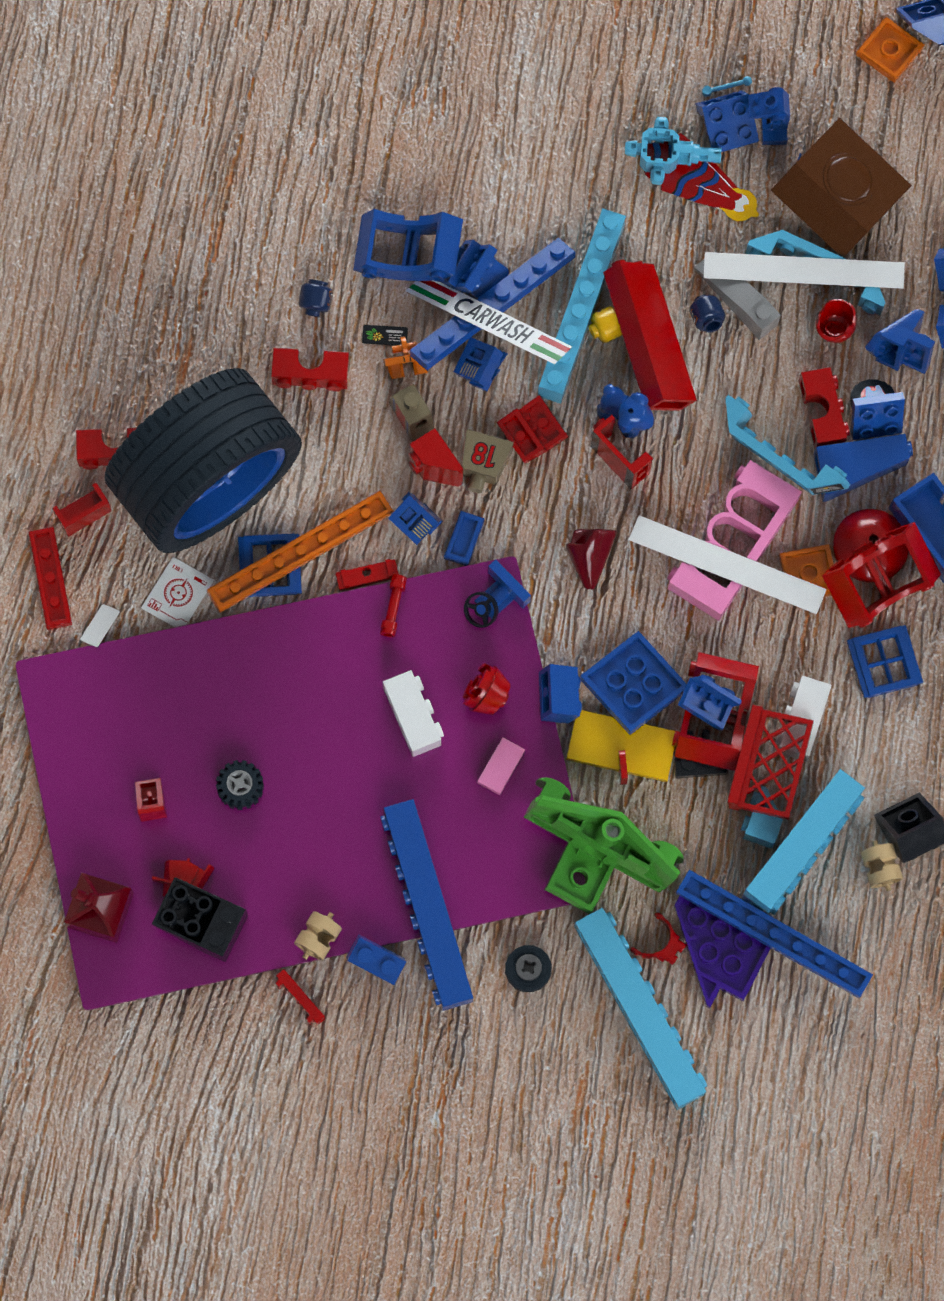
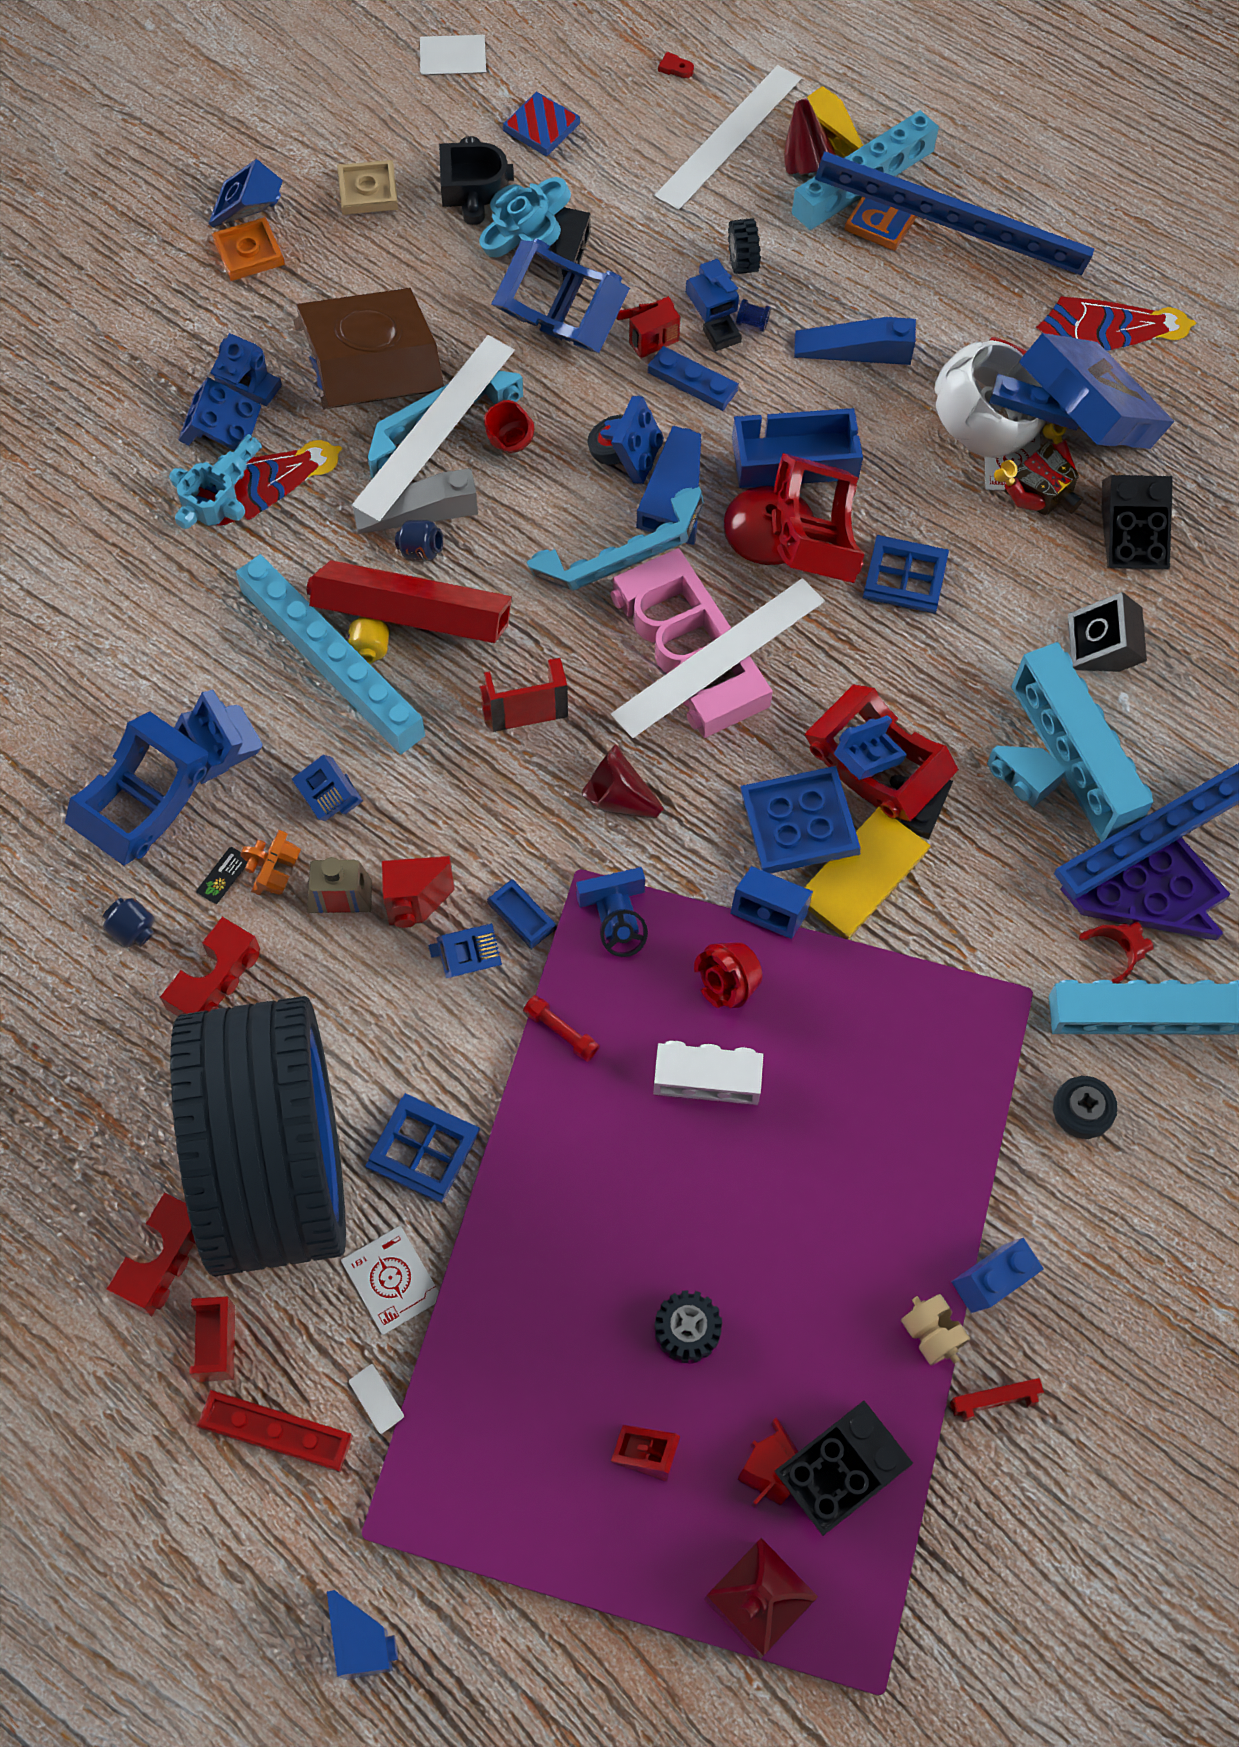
camera: 60 degrees left, 10 degrees down
(299, 551) = (429, 1106): orange tile -> none
(354, 577) = (498, 1056): red piece -> none
(427, 904) = (958, 1178): blue brick -> none
(484, 459) = (442, 834): dark tan torso -> none
(490, 320) = (290, 739): white sticker -> none
(499, 297) = (268, 741): blue plate -> none
(501, 766) = (824, 1009): bright pink tile -> none
(532, 429) = (437, 776): red slope -> none
(596, 845) = (975, 946): bright green piece -> none
(622, 767) = (900, 881): red piece -> none
(631, 412) = (493, 654): blue animal -> none
(707, 90) = (172, 423): medium azure hinge -> none
(747, 762) = (967, 759): red fence -> none
(808, 564) = (759, 585): orange tile -> none
(808, 703) = (931, 676): white brick -> none
(821, 388) = (573, 479): red arch -> none
(881, 864) = (1138, 683): tan wheel -> none
(903, 344) = (576, 379): blue piece -> none

